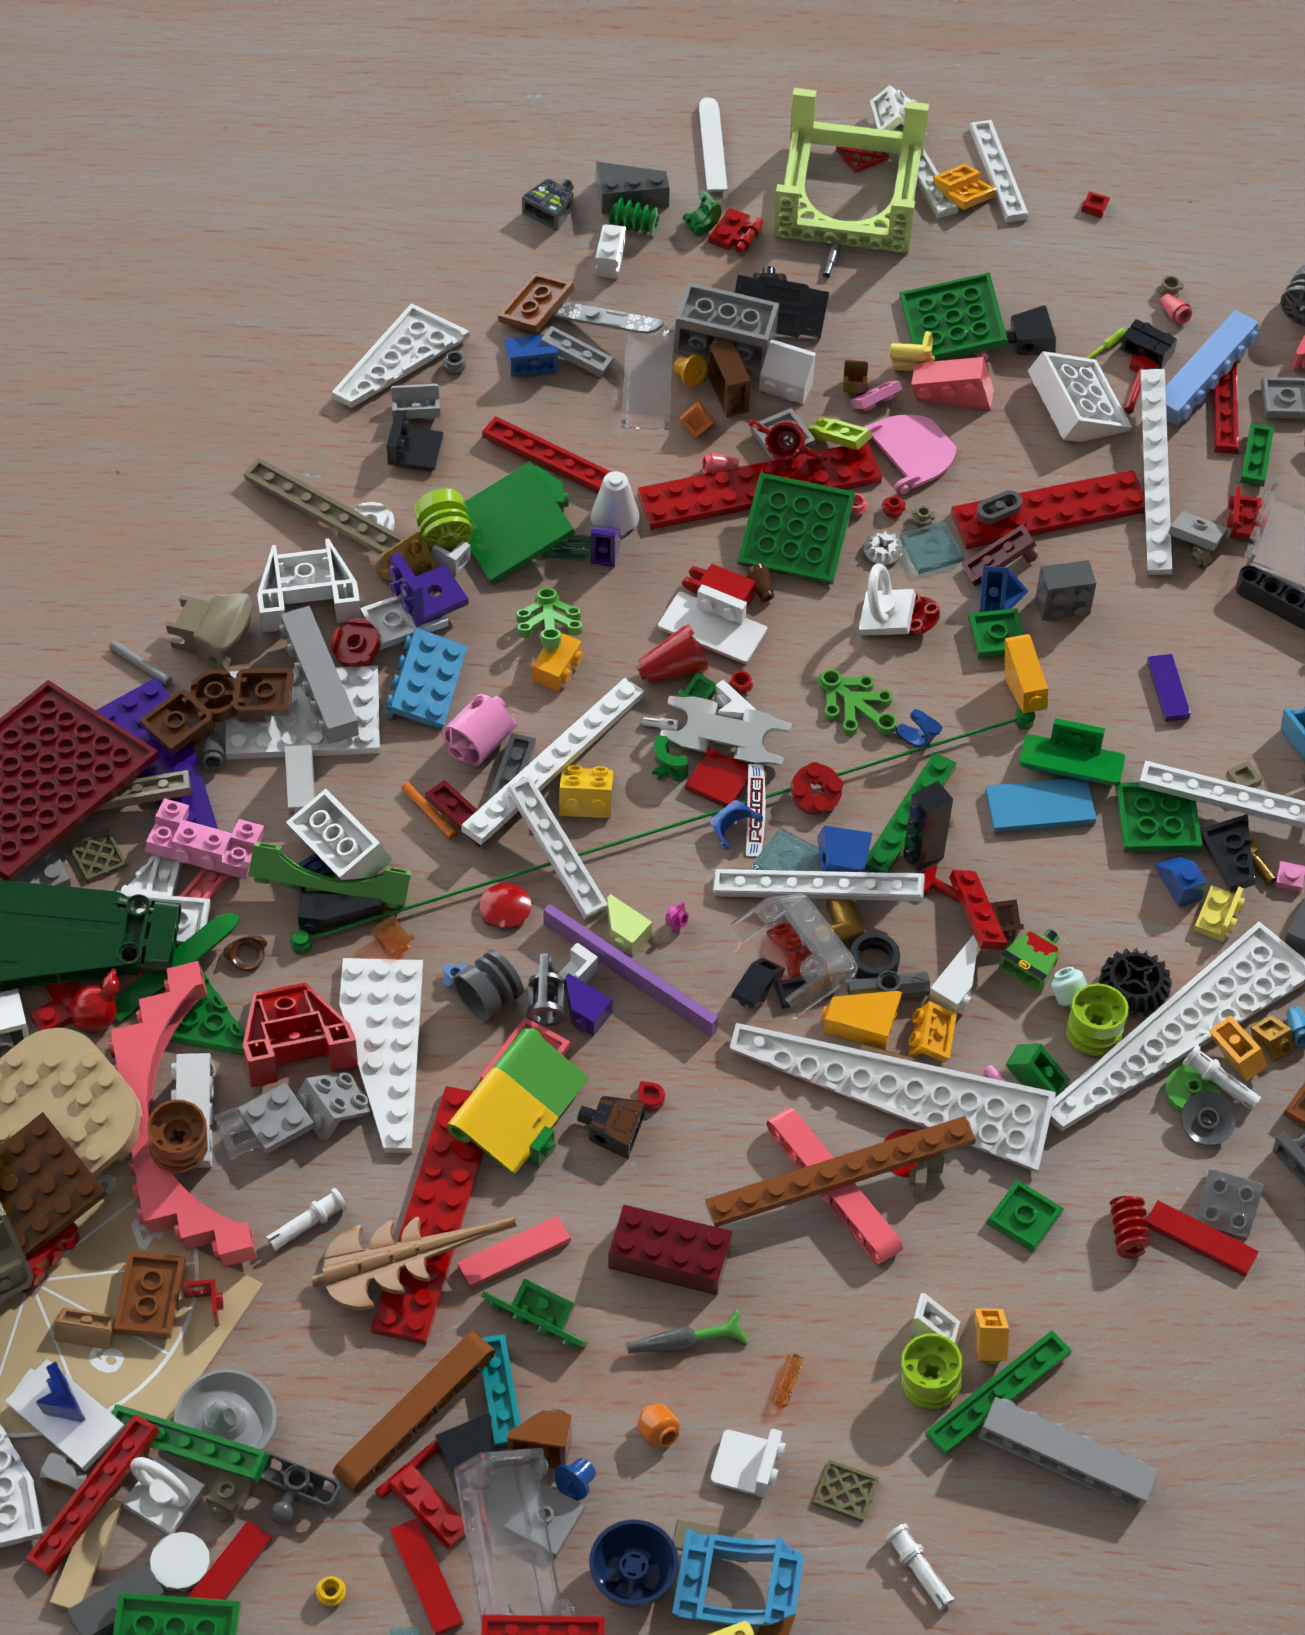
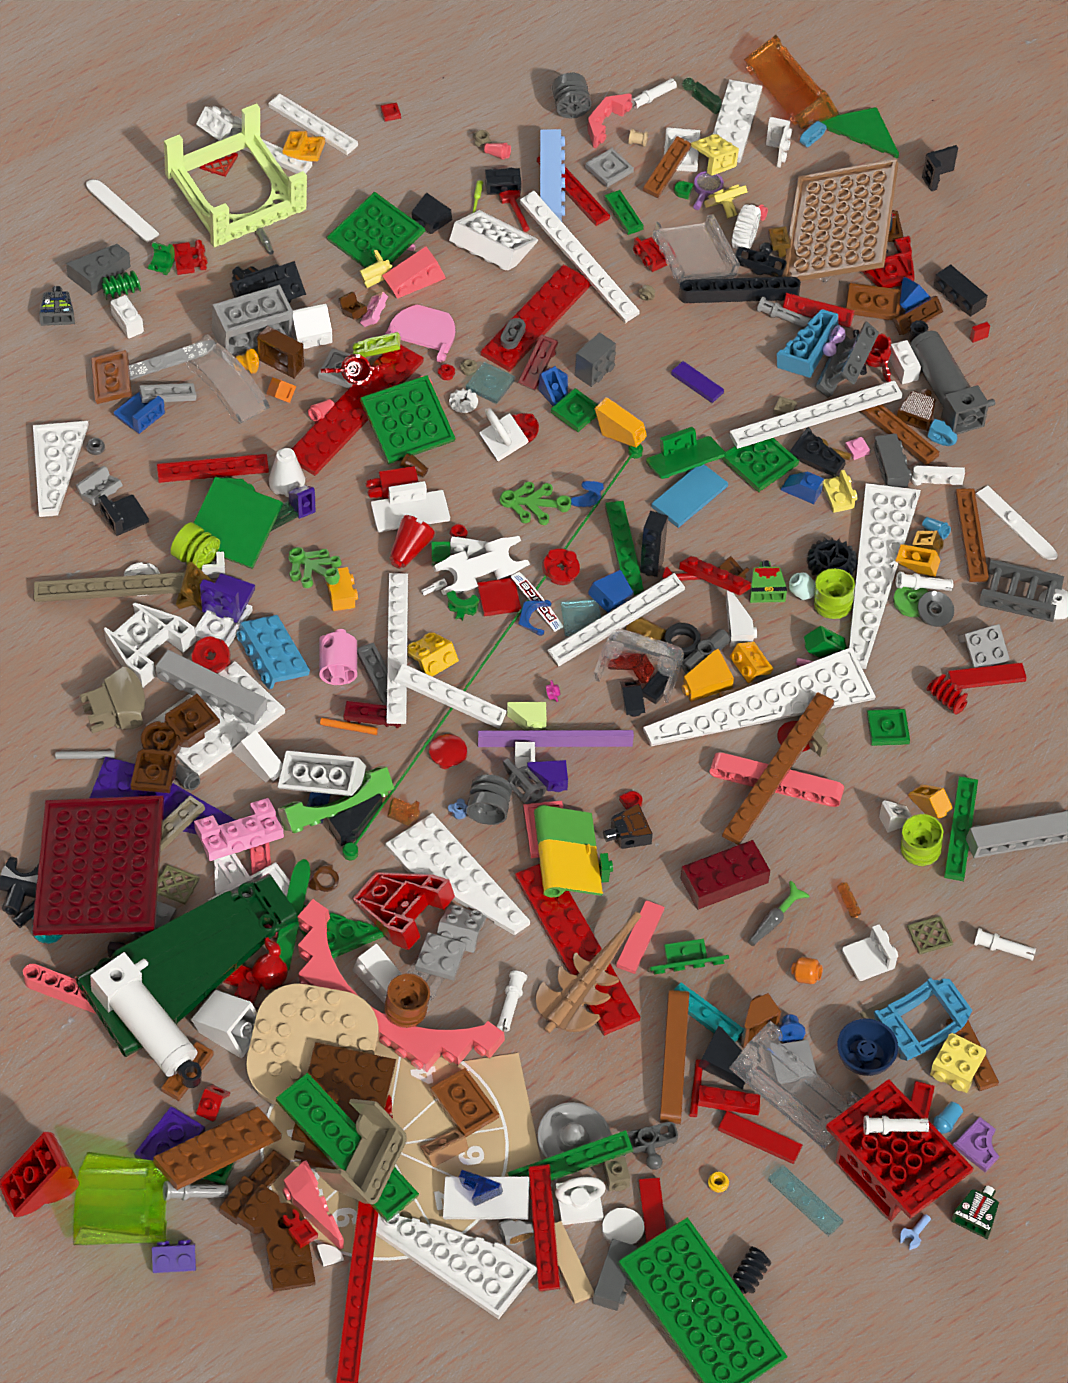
camera: 40 degrees left, 0 degrees up
(210, 1290) = (504, 1077): red bracket -> none
(1197, 531) = (634, 278): light grey plate -> none

